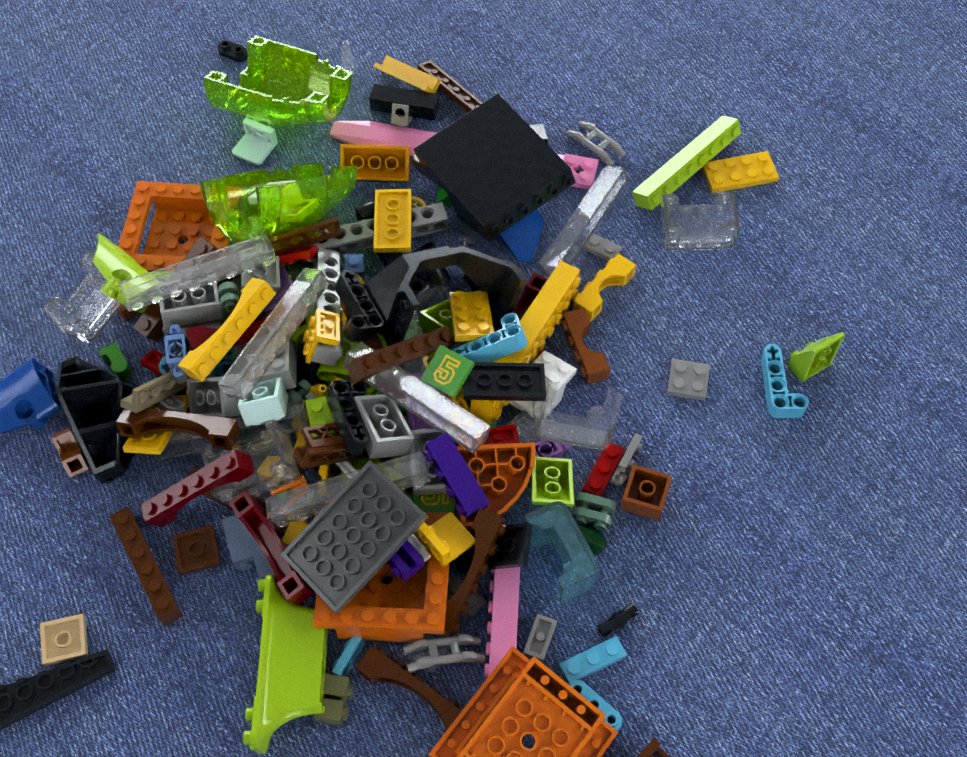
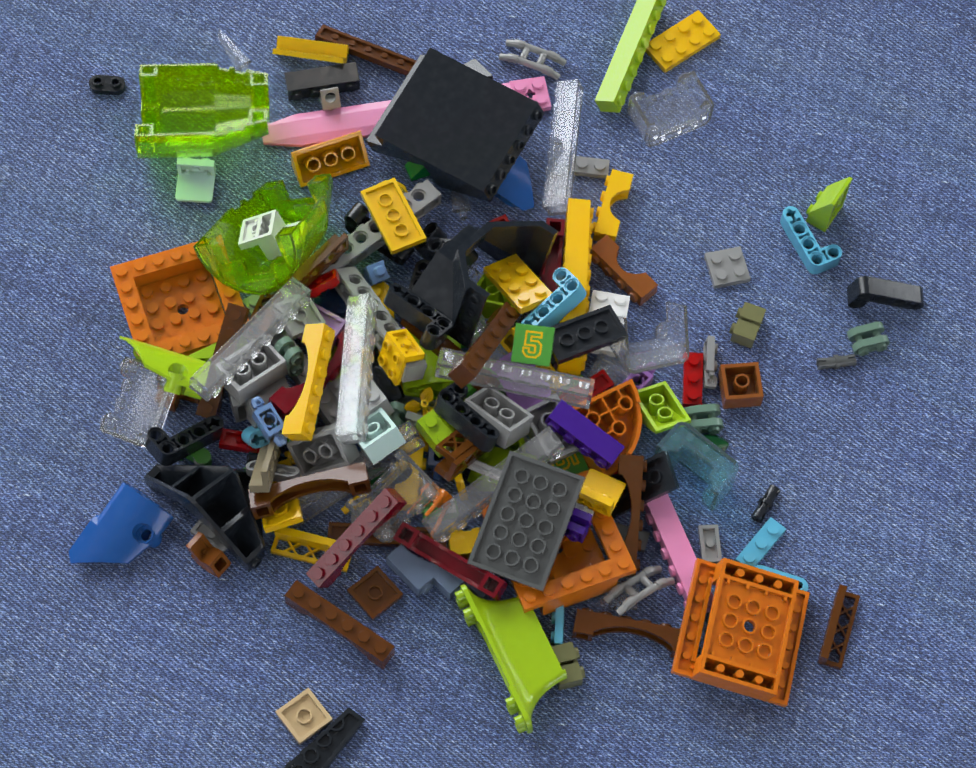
camera: 30 degrees left, 5 degrees up
(107, 346) = (173, 449): none -> black beam
(167, 477) = (305, 539): none -> yellow fence
(684, 436) = (748, 324): none -> olive piece
(756, 508) = (836, 362): none -> dark grey pin
(800, 497) = (864, 346): none -> sand green brick
(837, 459) = (885, 292): none -> black beam

